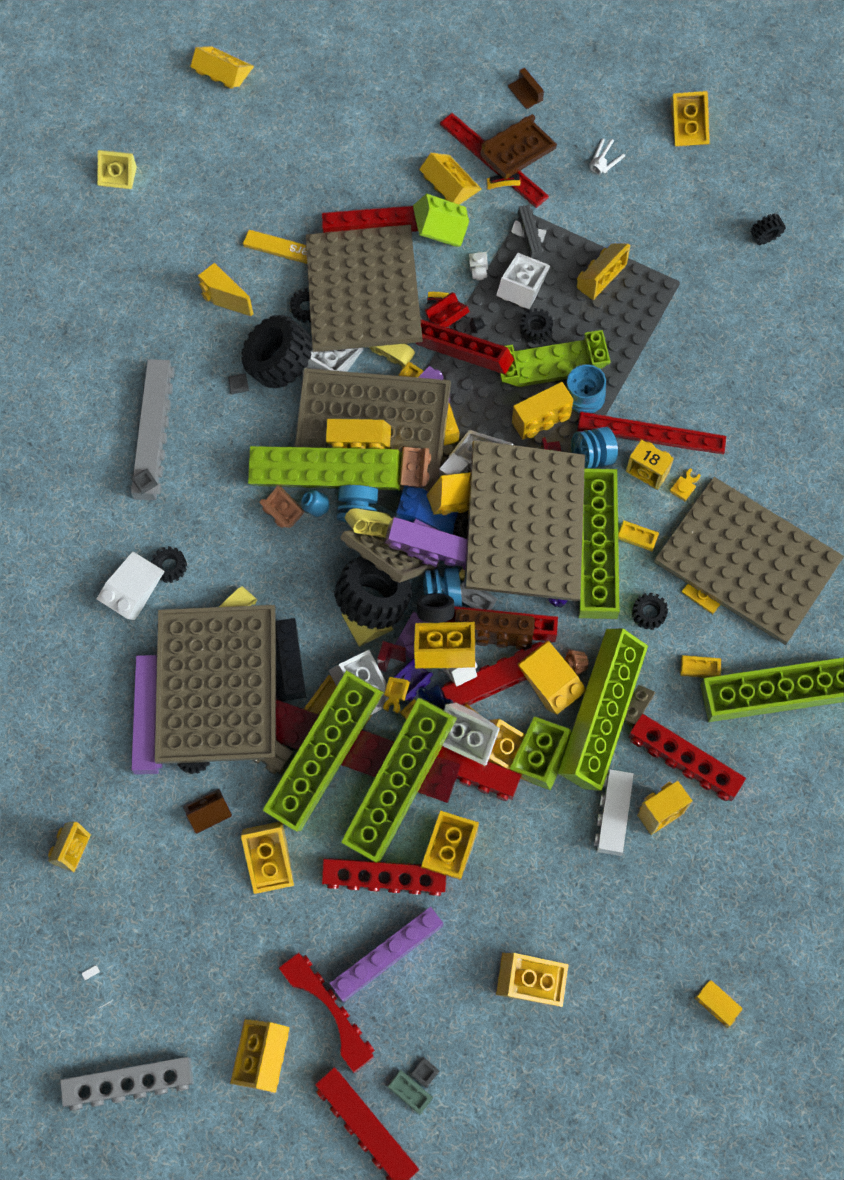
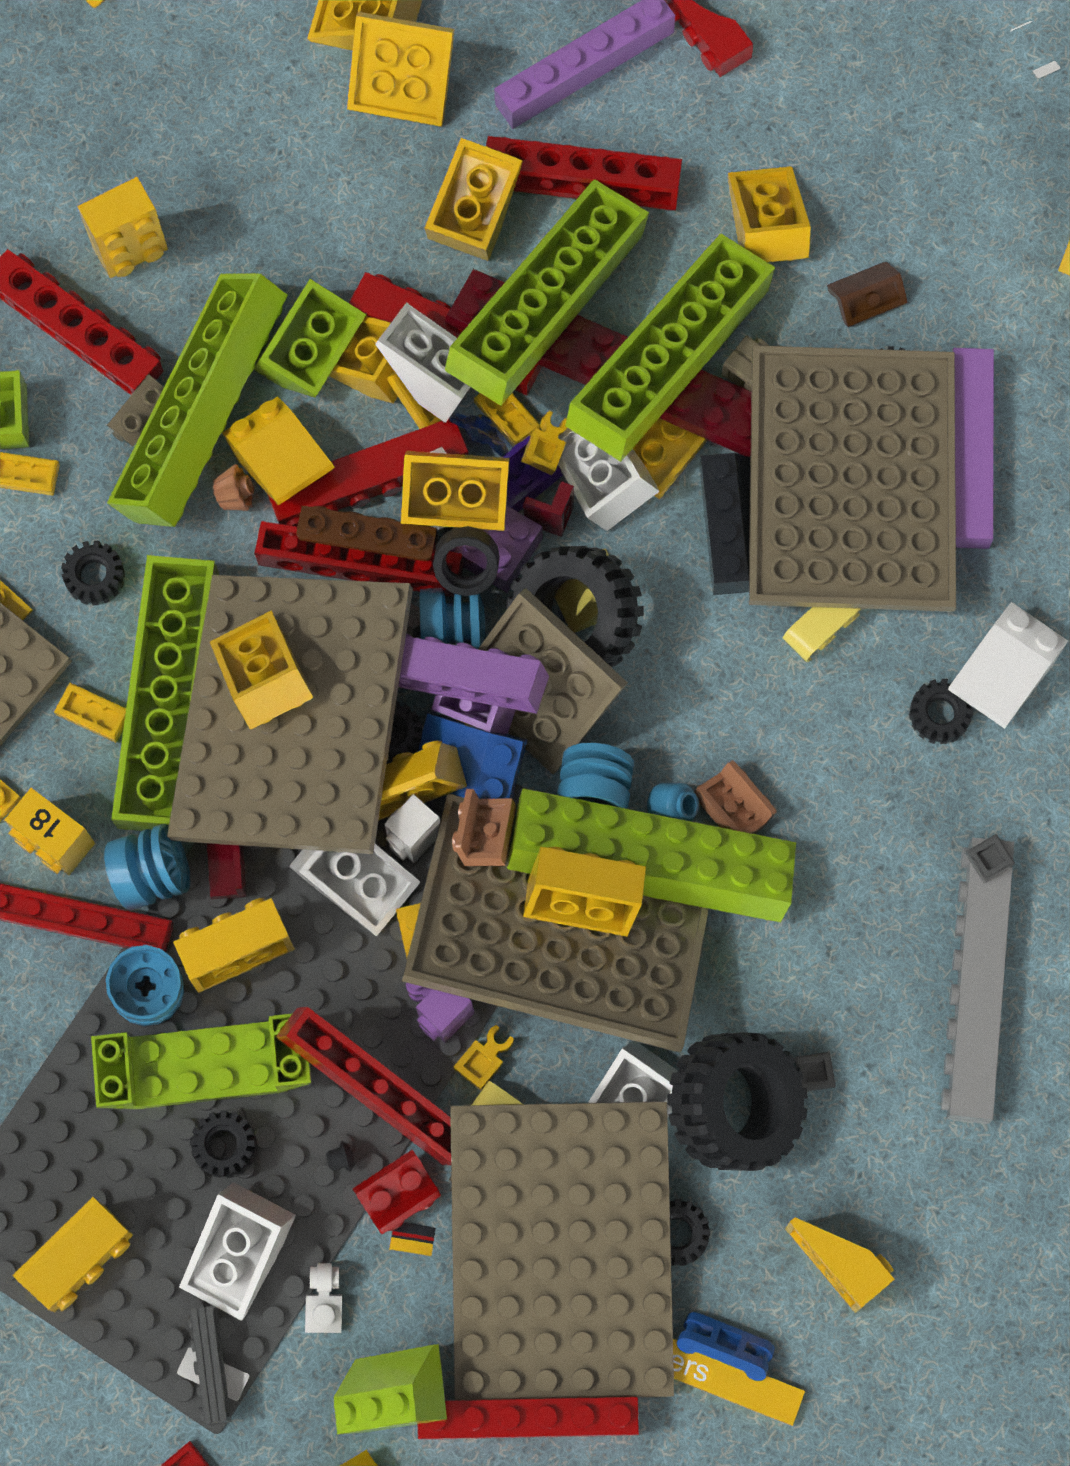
camera: 175 degrees left, 5 degrees up
(281, 258) = (726, 1345): none -> blue plate
(368, 522) = (569, 728): light yellow beam -> none
(504, 933) = (400, 69): none -> yellow plate
(545, 533) = (260, 670): none -> yellow slope
(615, 812) = (203, 245): white brick -> none

